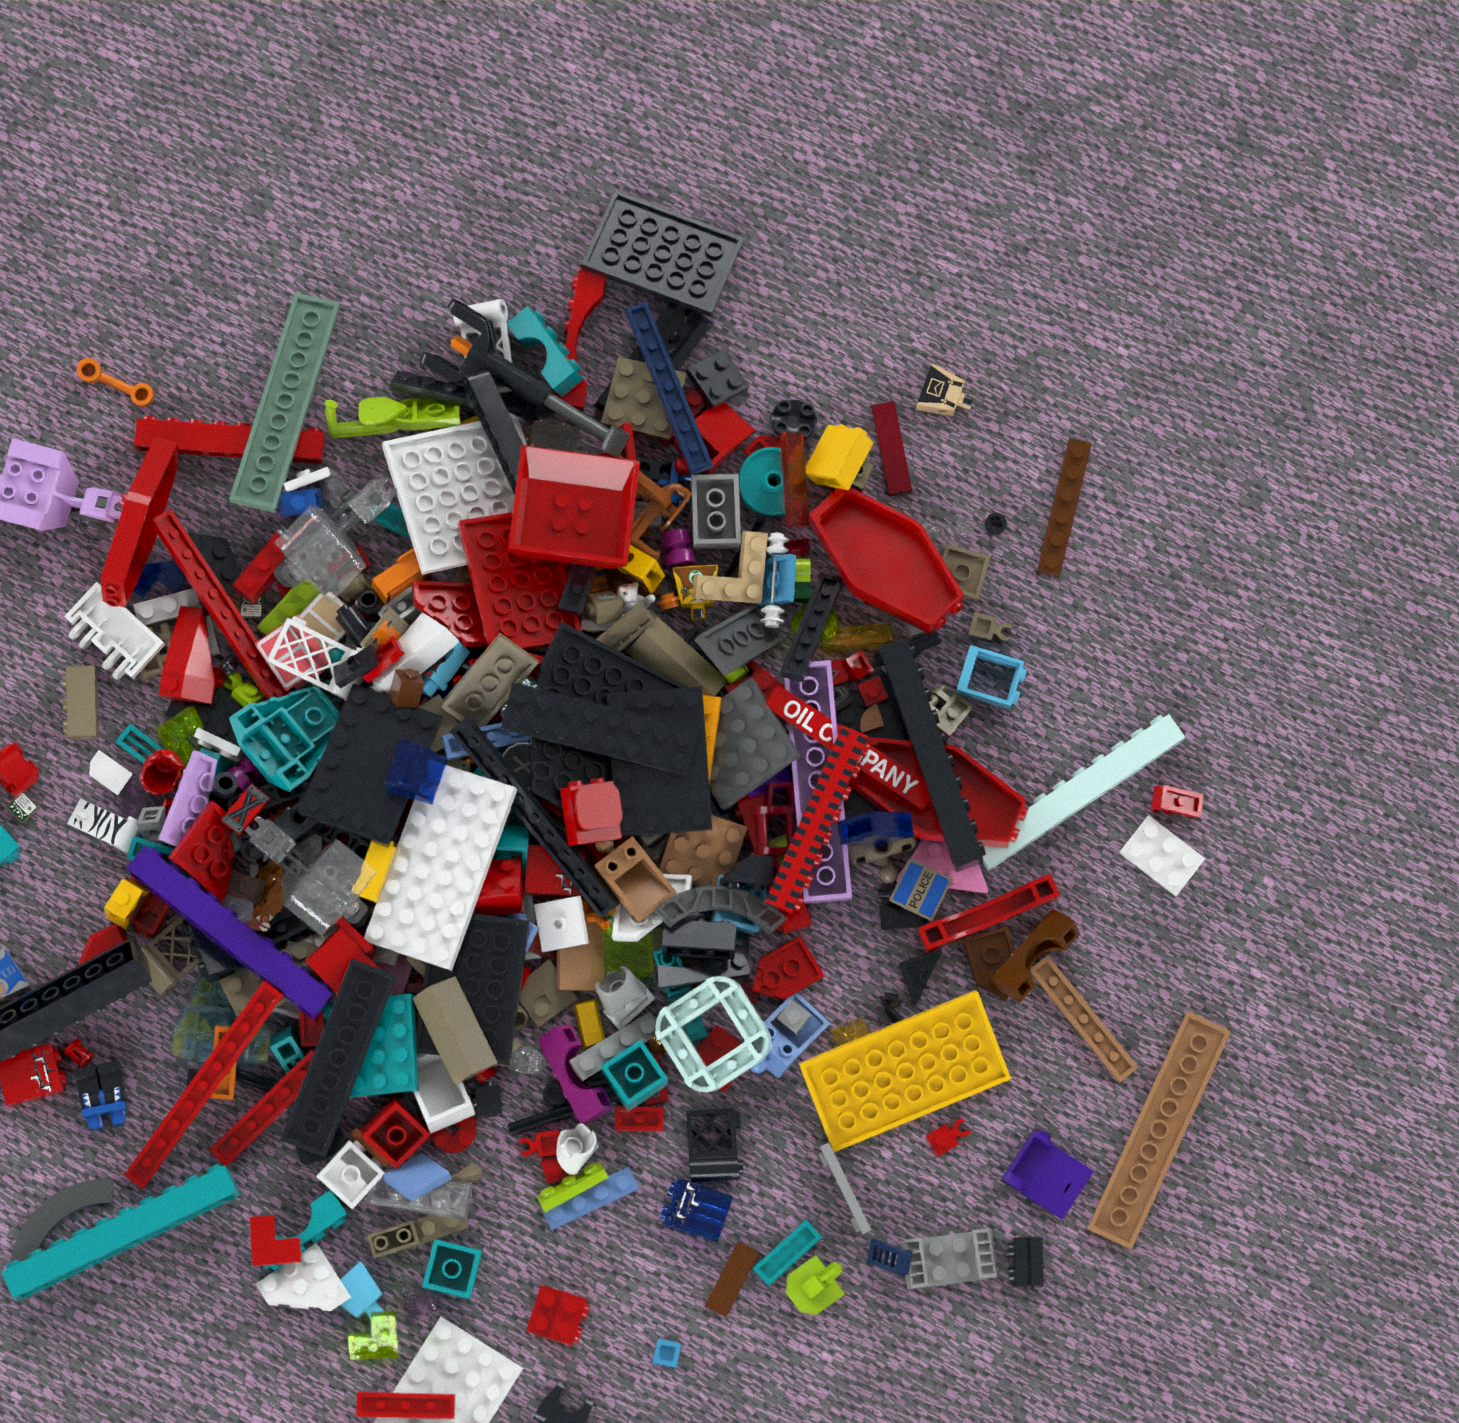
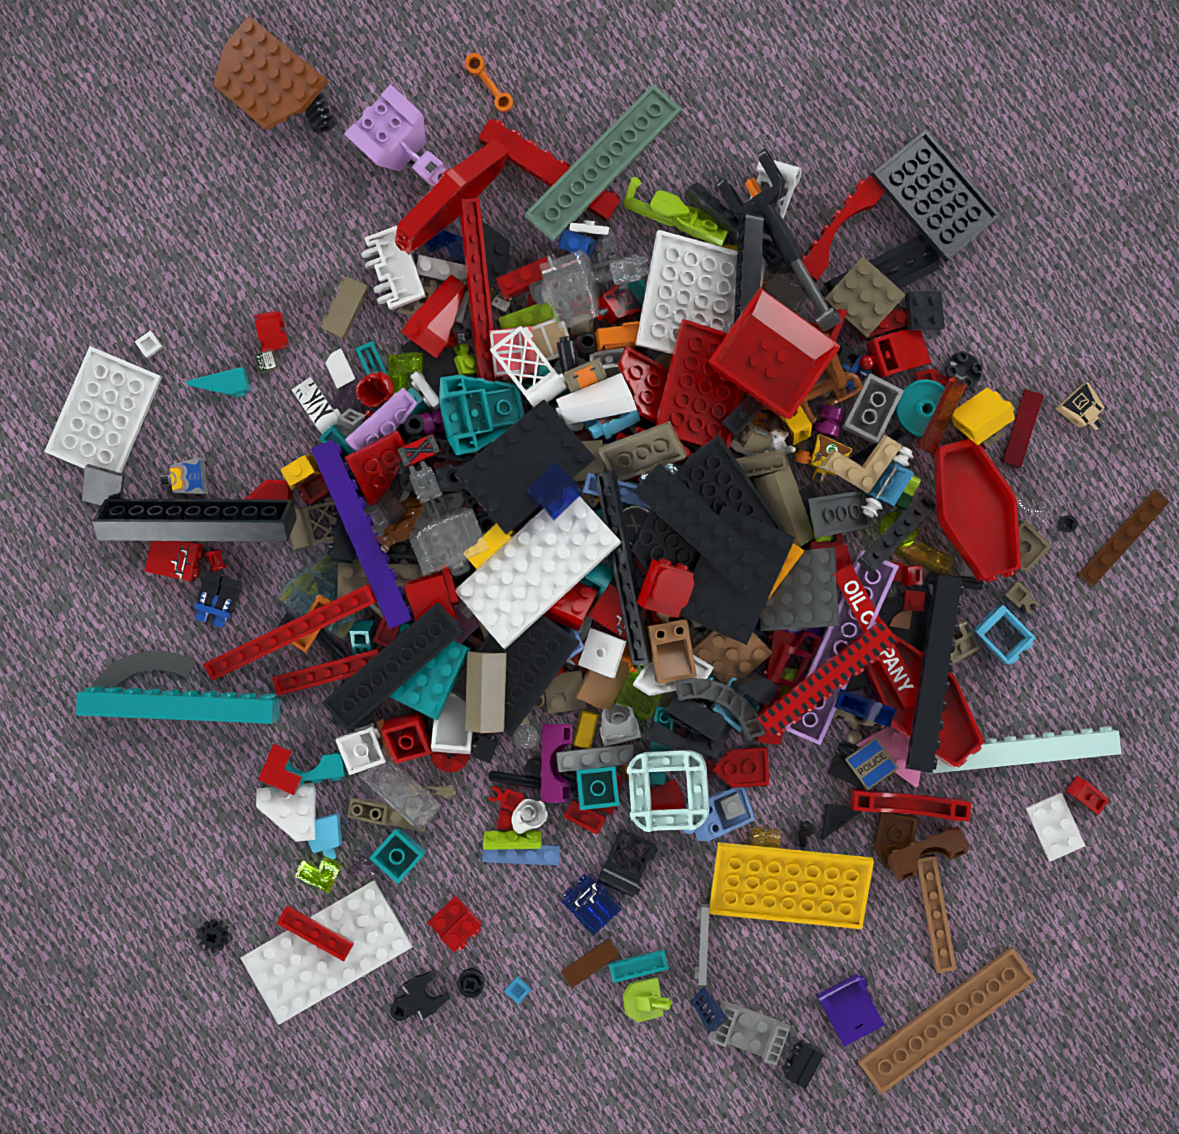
camera: 25 degrees right, 10 degrees up
(355, 666) = (552, 388): black plate -> none
(382, 543) = (619, 304): none -> torso
(387, 654) = (572, 392): red plate -> none
(406, 688) = (580, 424): reddish brown brick -> none
(417, 1177) = (406, 778): medium blue tile -> none
(559, 369) = (814, 244): teal arch -> none
(610, 1372) = (471, 983): none -> black wheel
(668, 388) = (887, 299): dark blue tile -> none
(798, 547) = (916, 466): dark red tile -> none
(944, 1139) = (791, 944): red plate -> none

